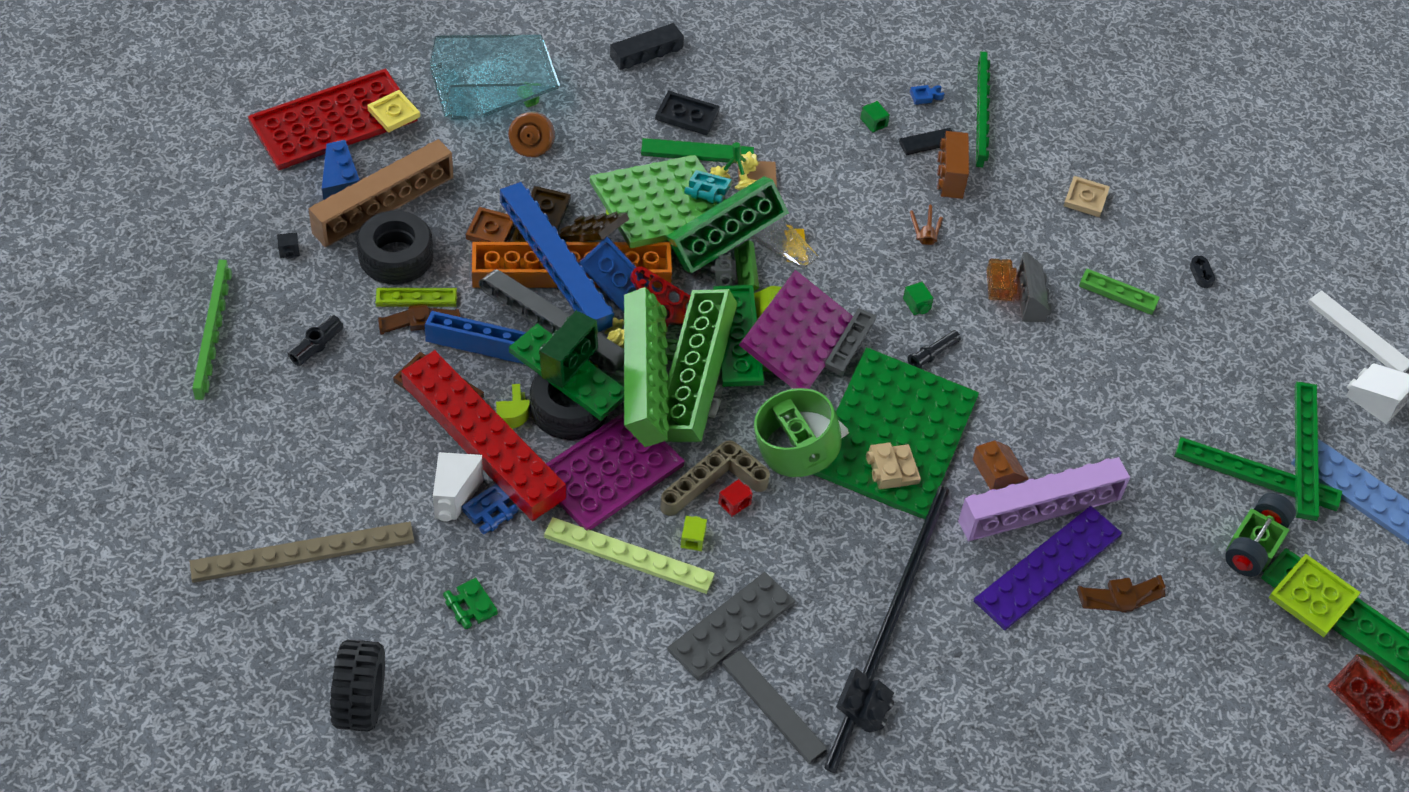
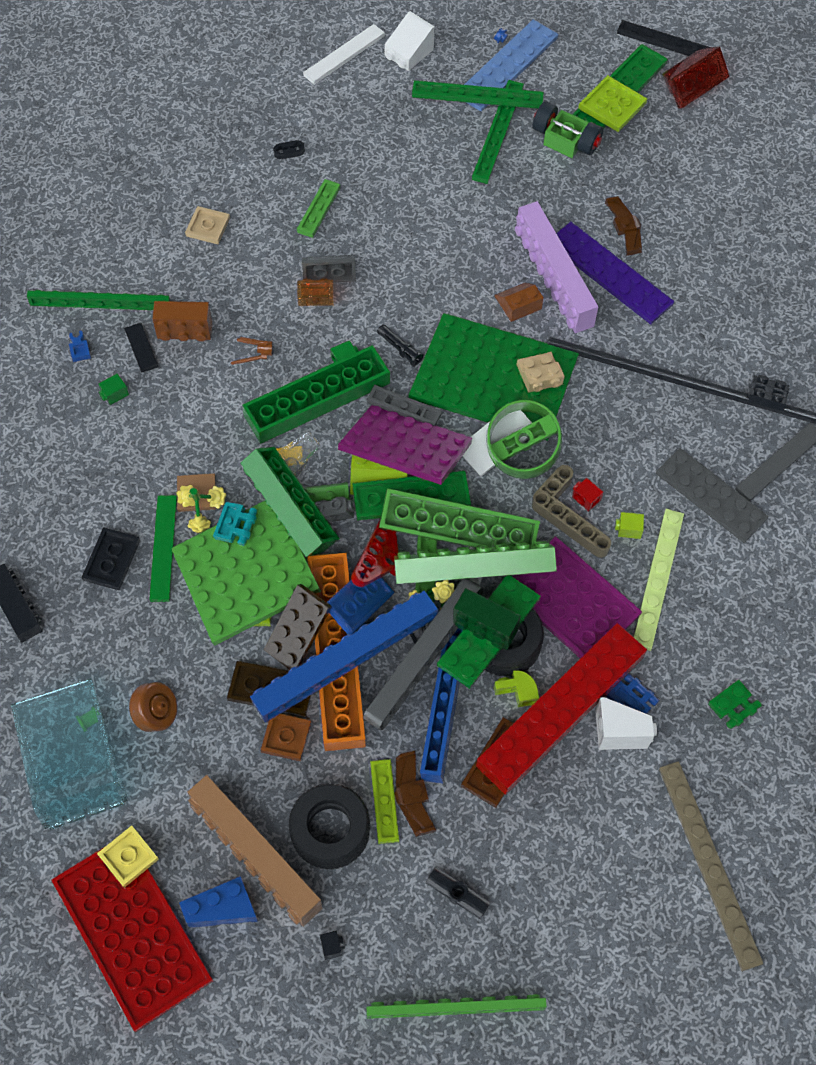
camera: 90 degrees left, 10 degrees up
(867, 270) = (316, 394): none -> green brick

